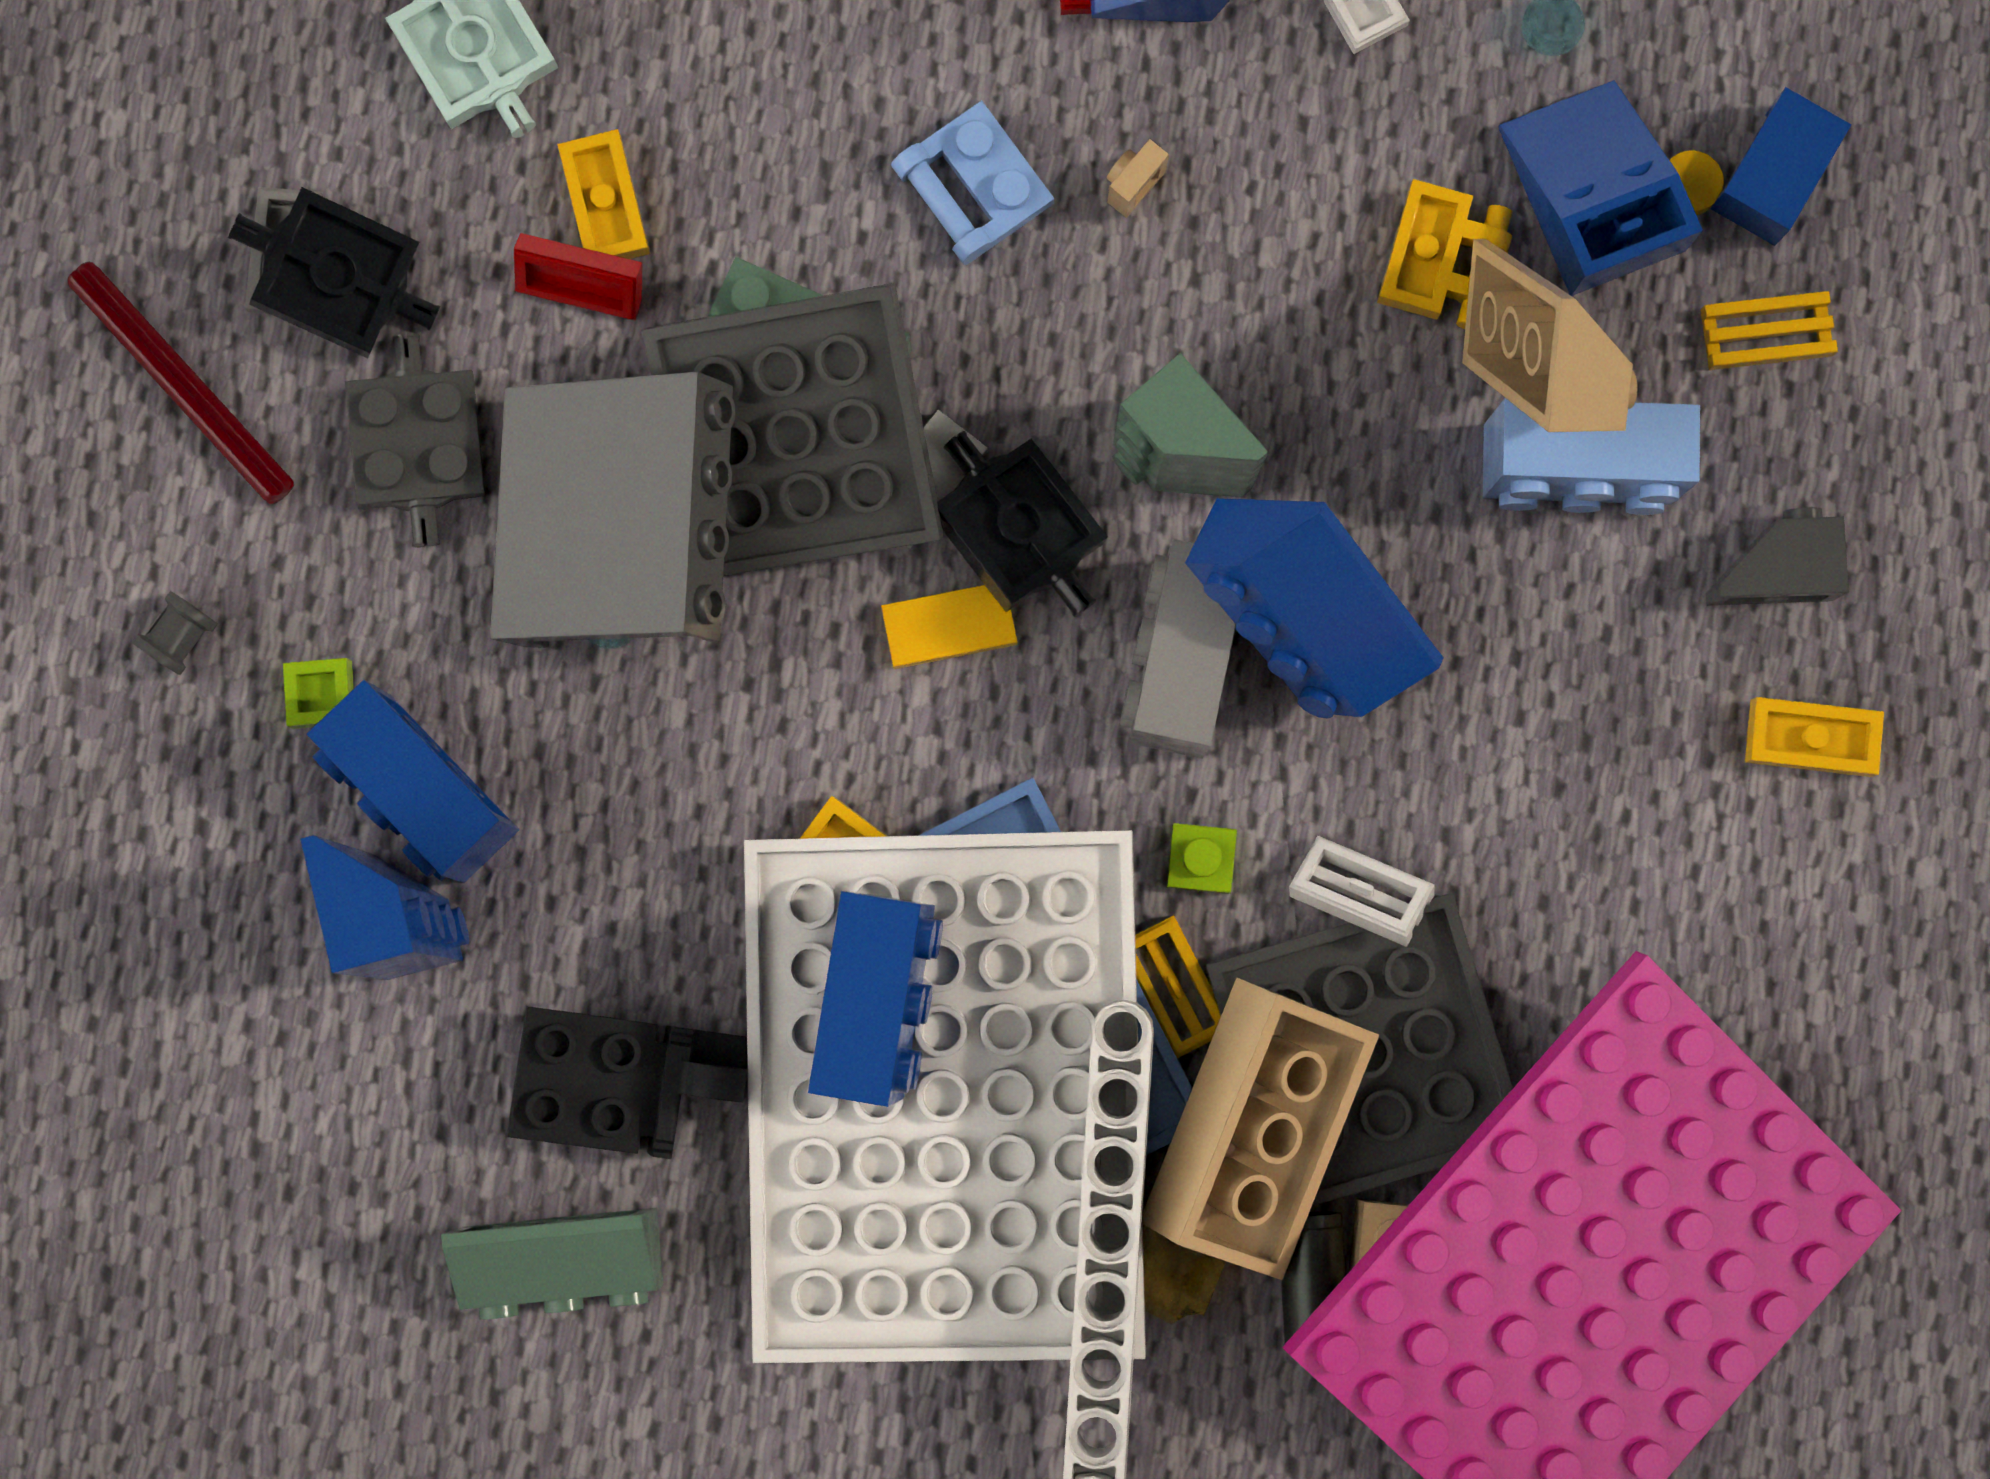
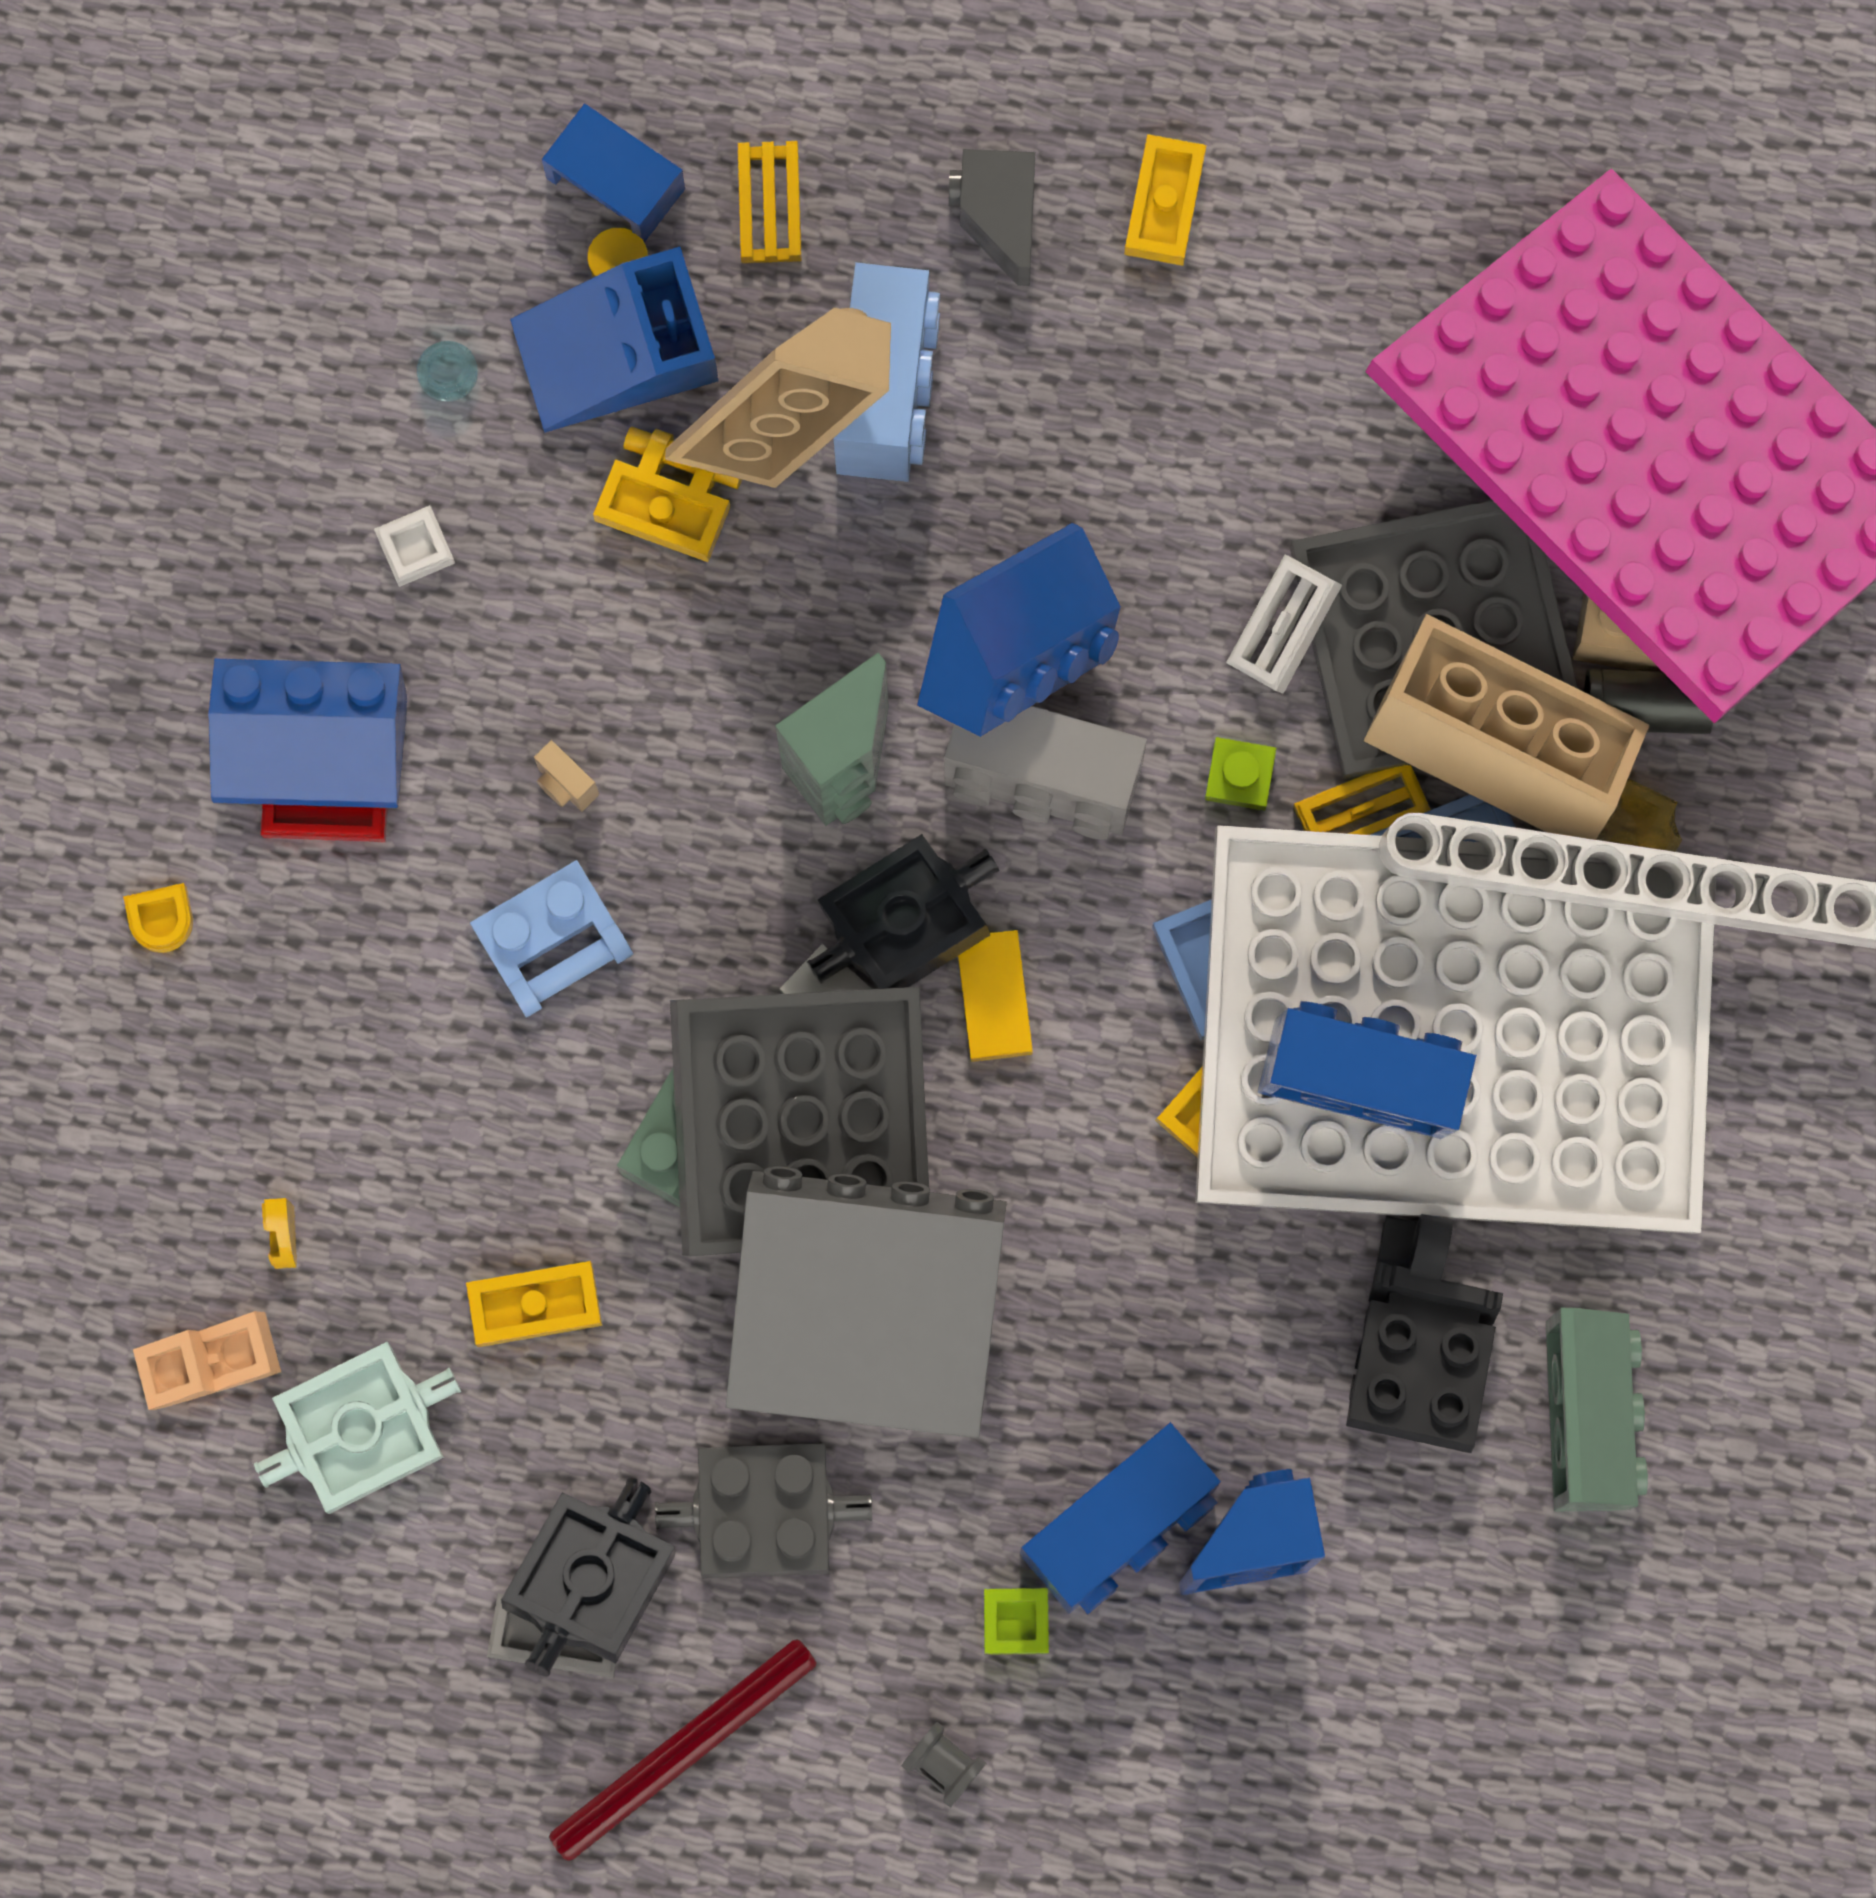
camera: 85 degrees left, 5 degrees down
(578, 276) = (614, 1333): red tile -> none

